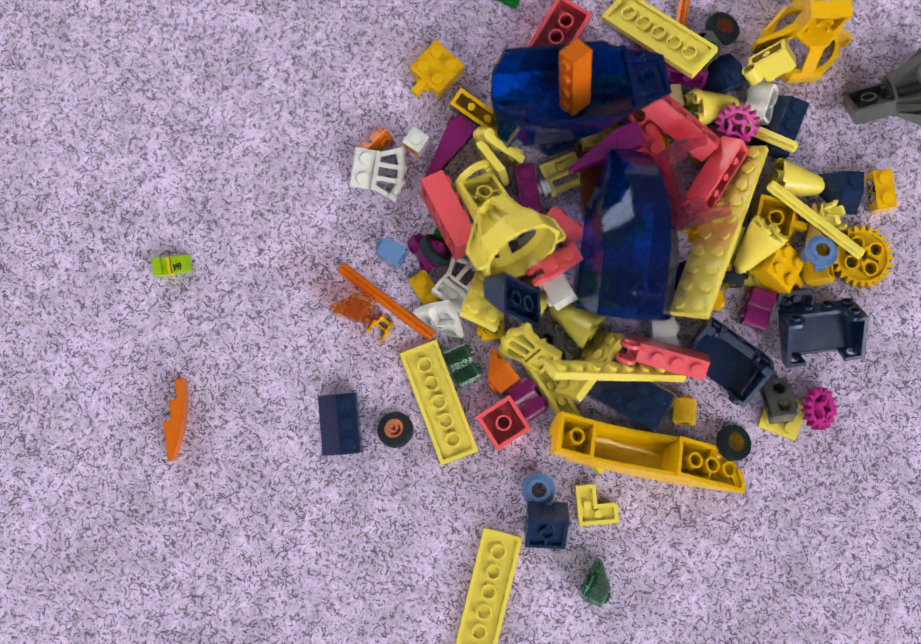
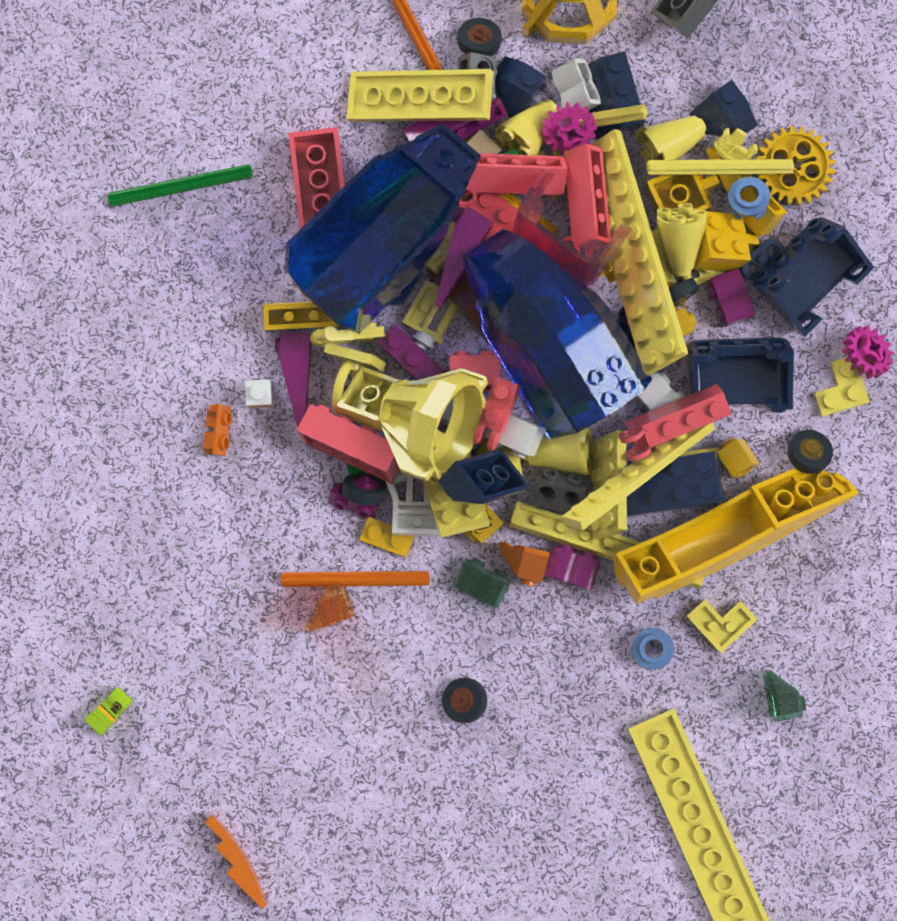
camera: 30 degrees left, 0 degrees up
(340, 424) = (404, 738): dark blue slope -> none
(366, 168) = (230, 460): white plate -> none
(376, 323) = (369, 599): yellow piece -> none
(391, 252) = (322, 526): medium blue brick -> none
(435, 70) = (222, 305): yellow hinge -> none
(438, 402) = (486, 639): light yellow plate -> none
(441, 316) = (422, 551): white brick -> none
(503, 422) = (566, 609): coral brick -> none
(528, 349) = (534, 517): light yellow plate -> none
(546, 525) = (687, 677): dark blue piece -> none
(575, 77) = (373, 213): orange brick -> none
(770, 63) = (554, 42): light yellow hinge -> none
(774, 400) = (817, 379): dark grey brick -> none
(880, 190) = (763, 84): yellow brick -> none

